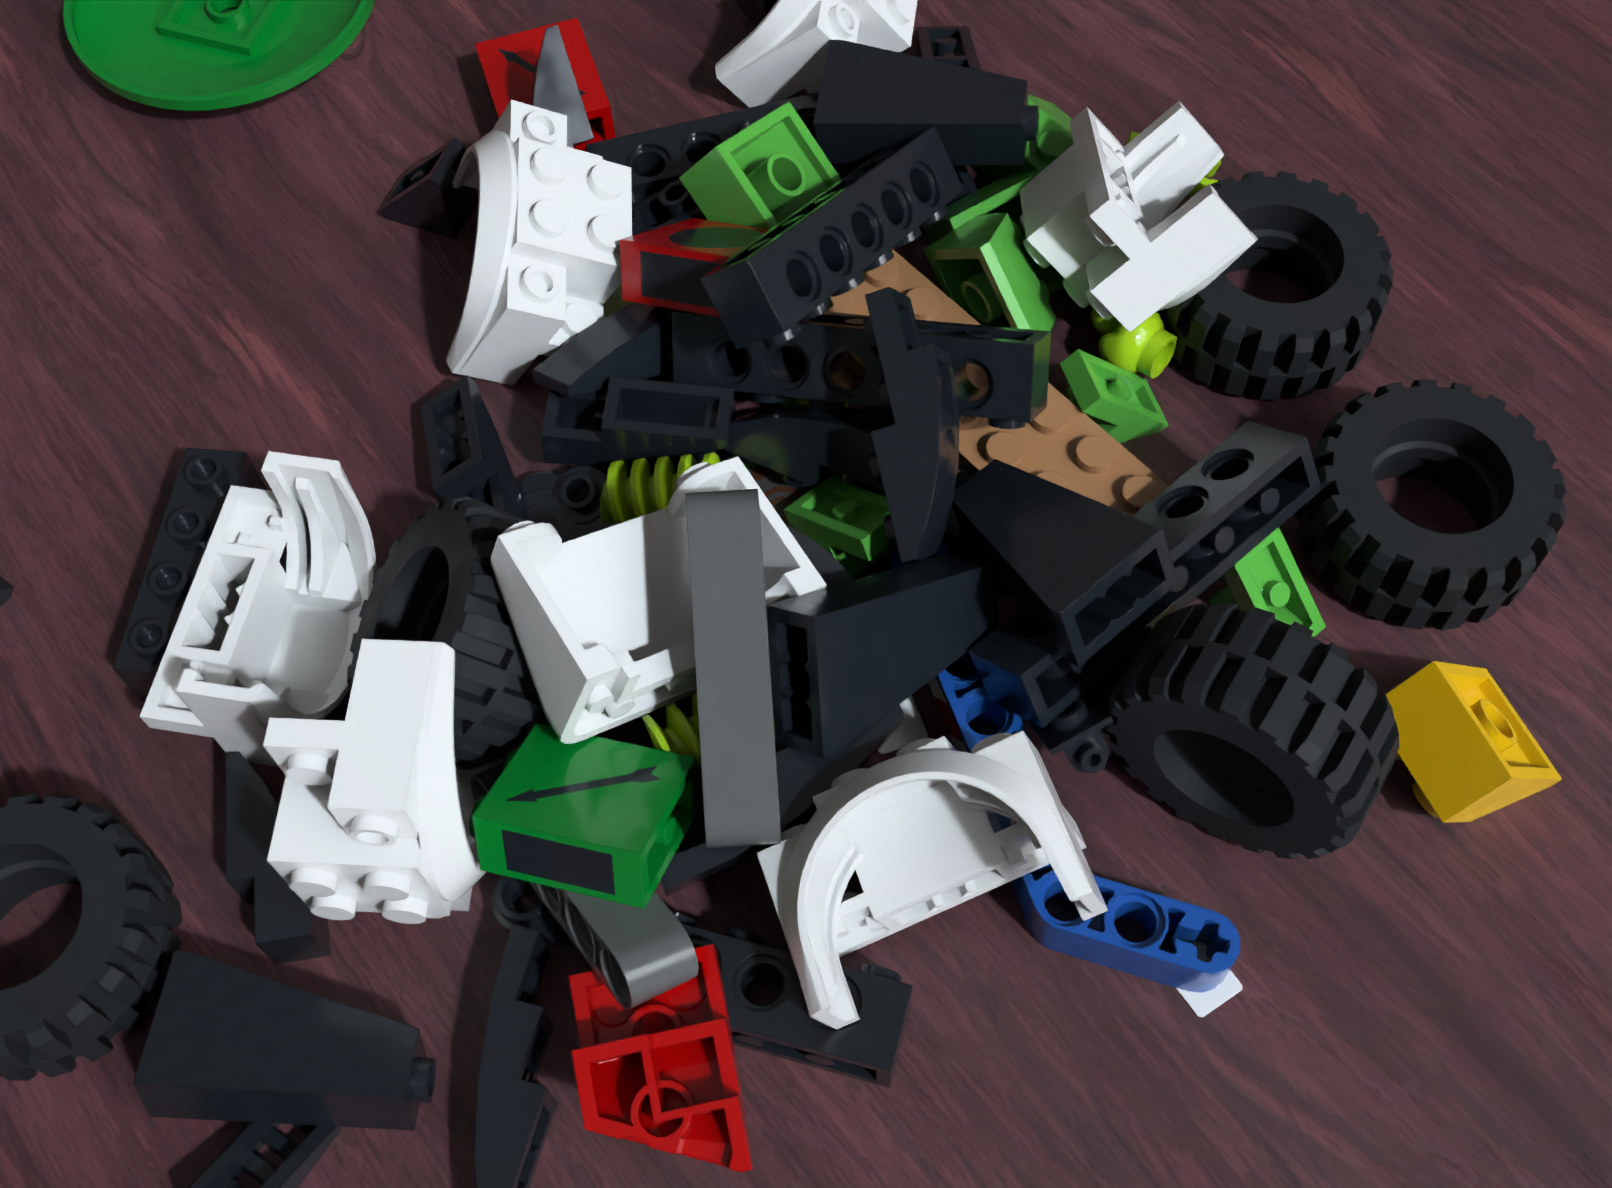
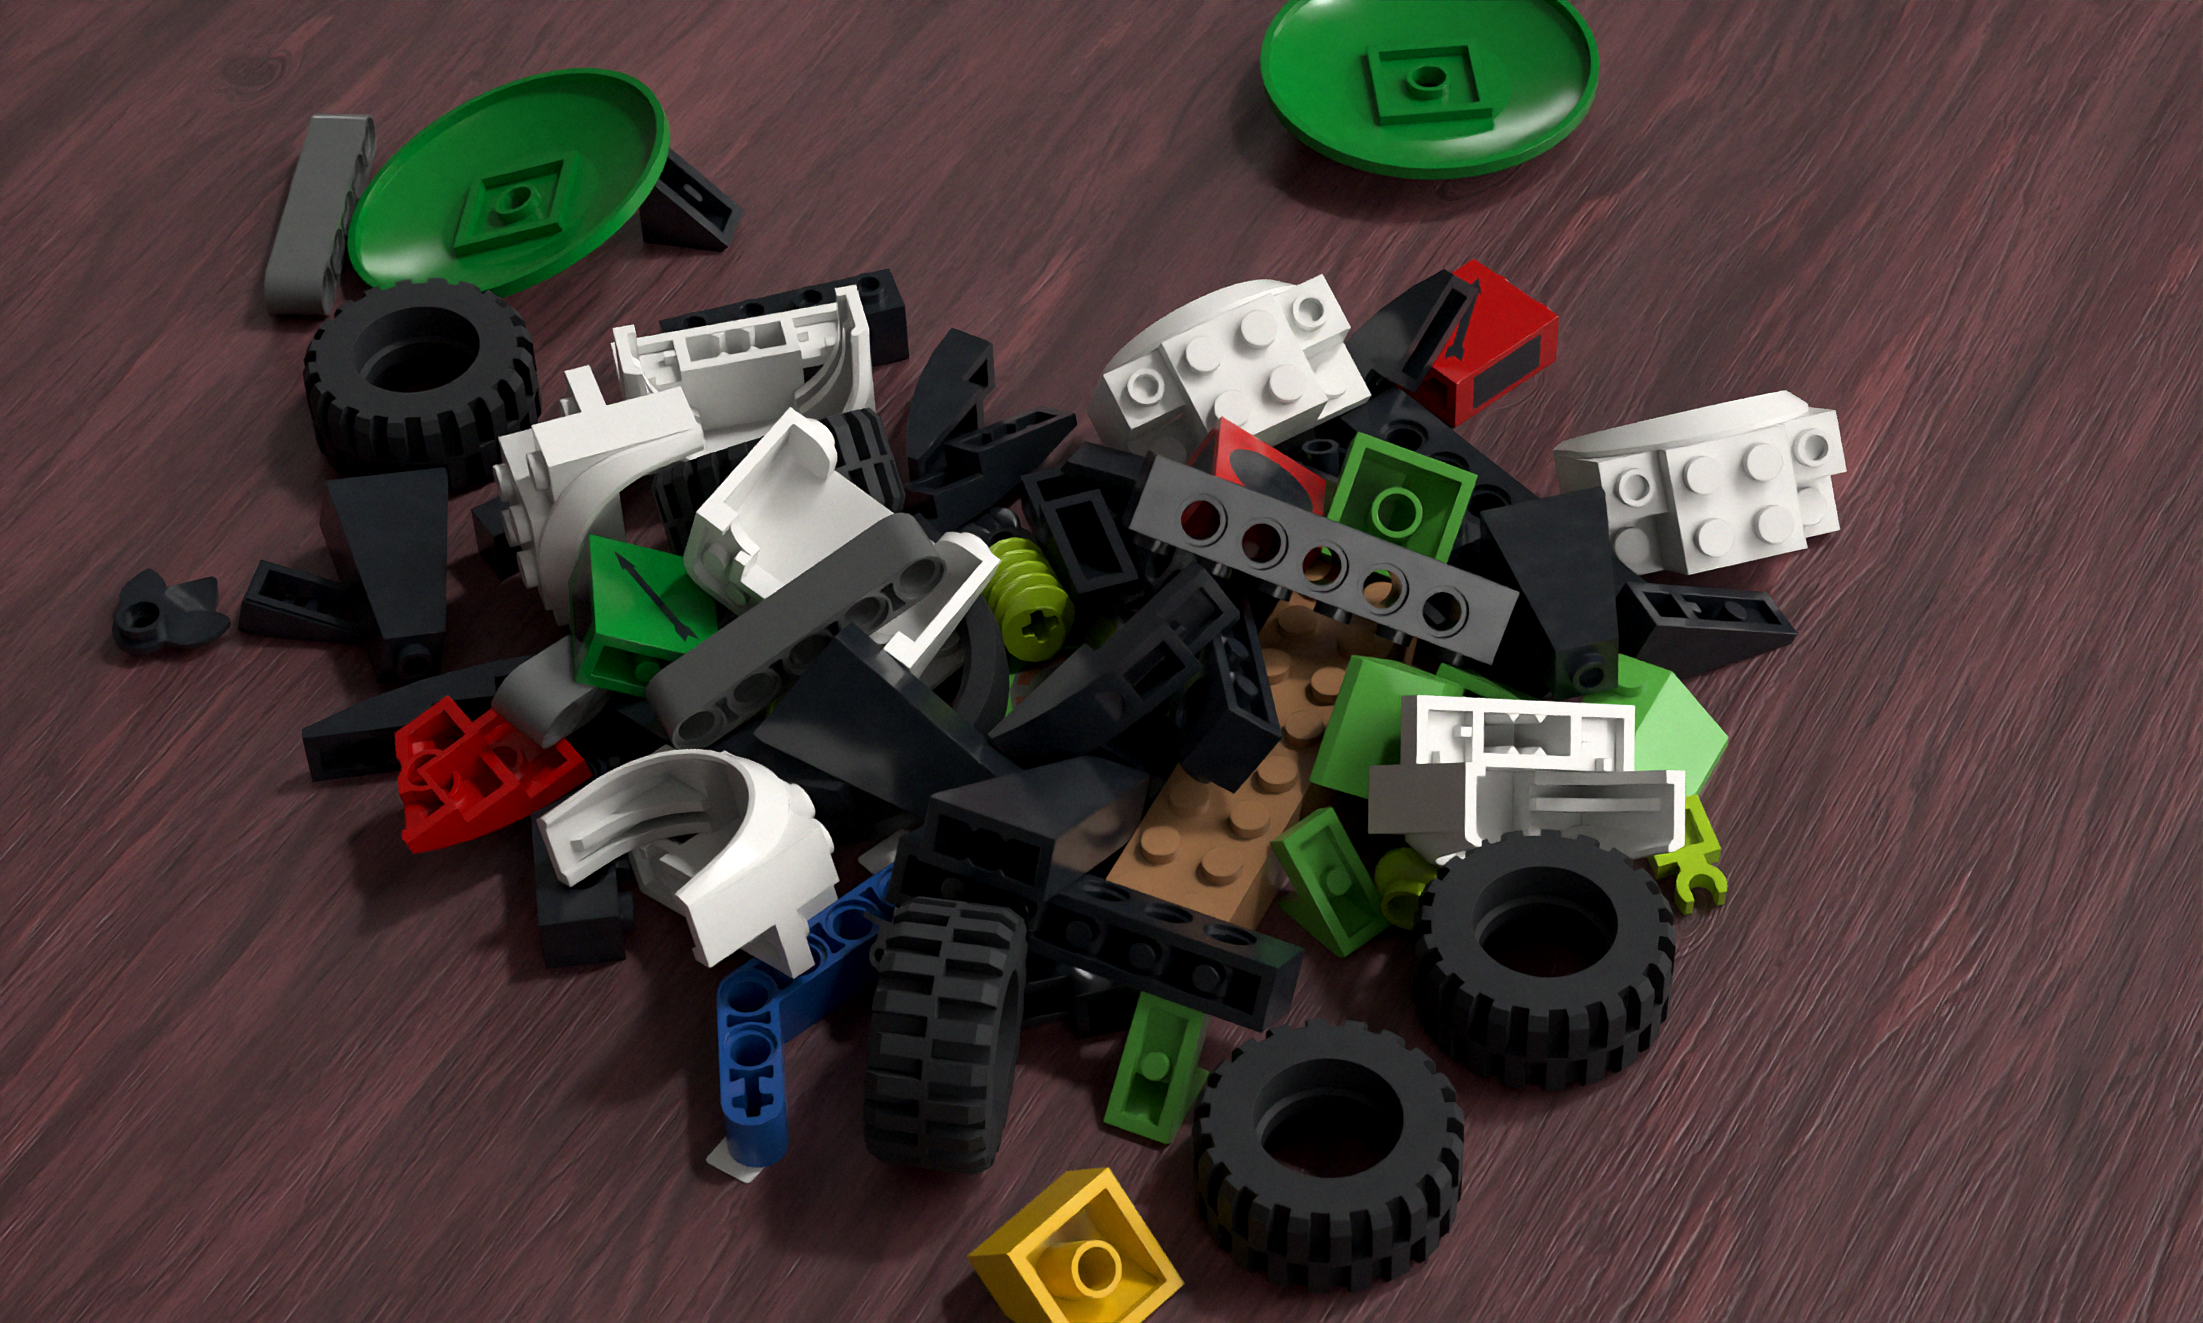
camera: 65 degrees right, 15 degrees down
(377, 470) = (948, 399): none -> black slope

